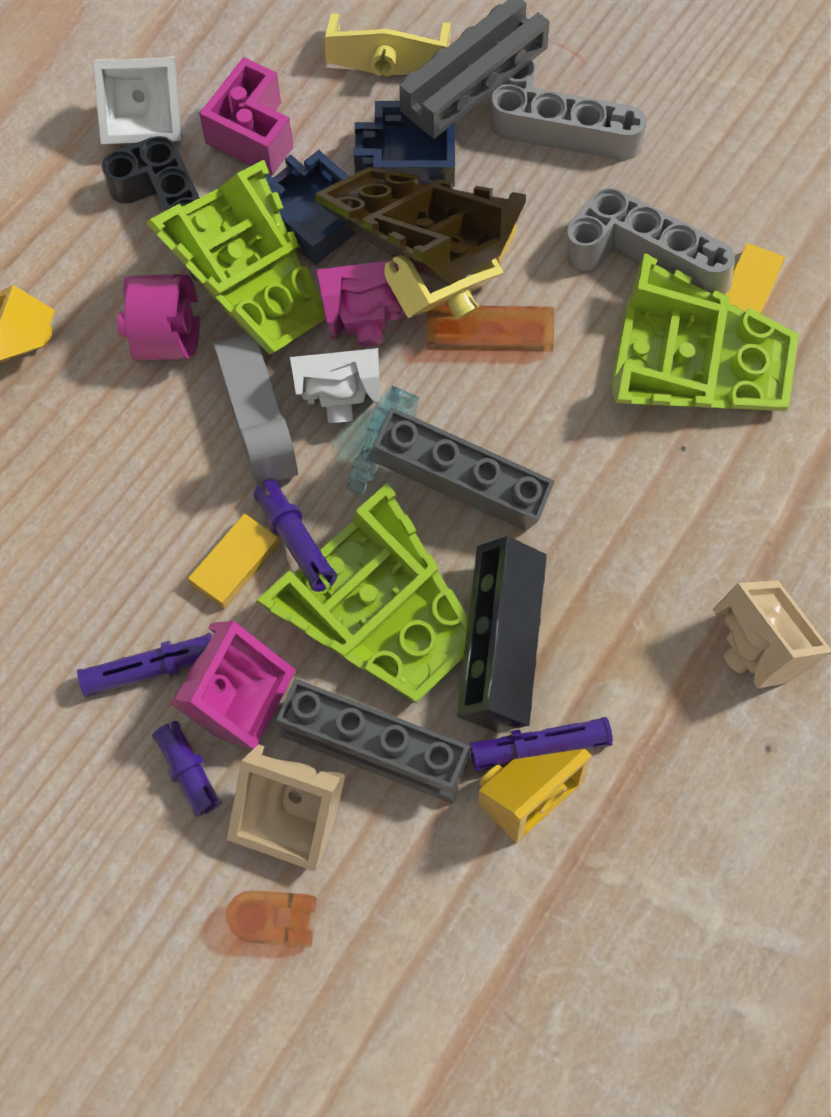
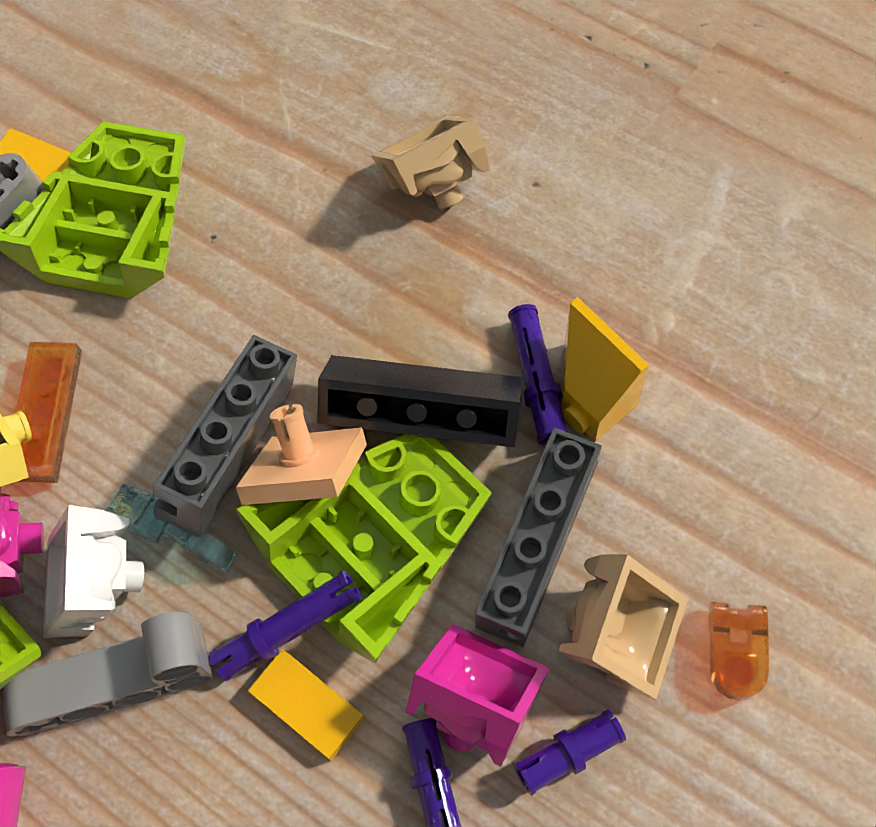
camera: 85 degrees left, 0 degrees up
(433, 533) = (300, 462): none -> light nougat tile

